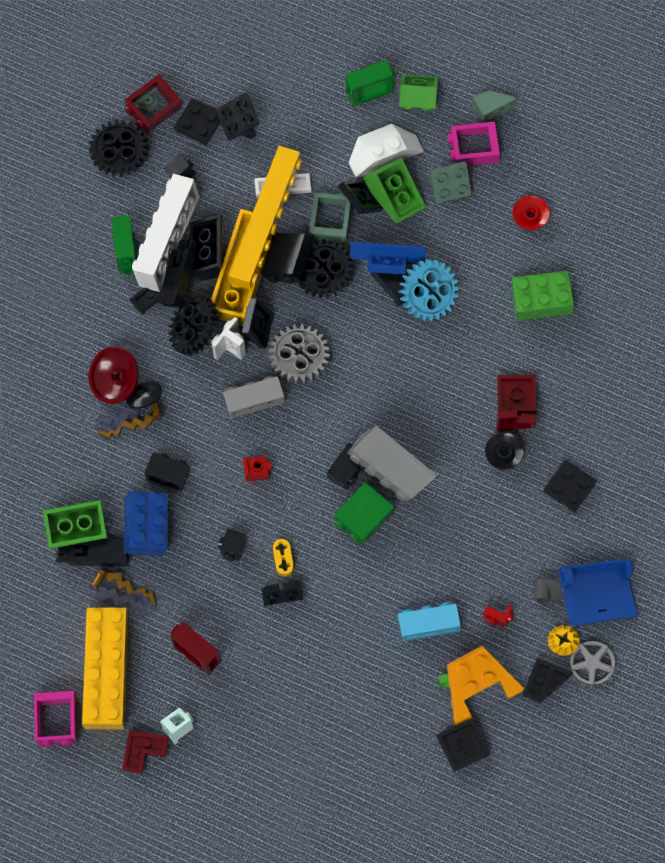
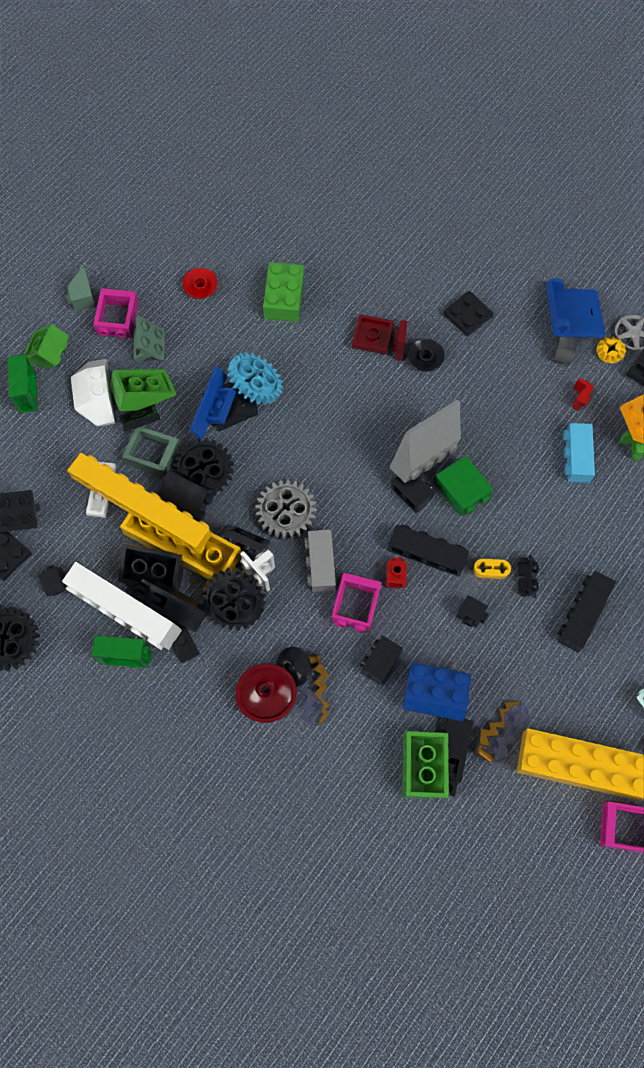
camera: 80 degrees left, 0 degrees up
(195, 648) = (579, 667): dark red window -> none
(218, 421) = (360, 584): none -> dark pink window
(257, 651) = (586, 611): none -> black brick
(286, 493) = (428, 550): none -> black brick

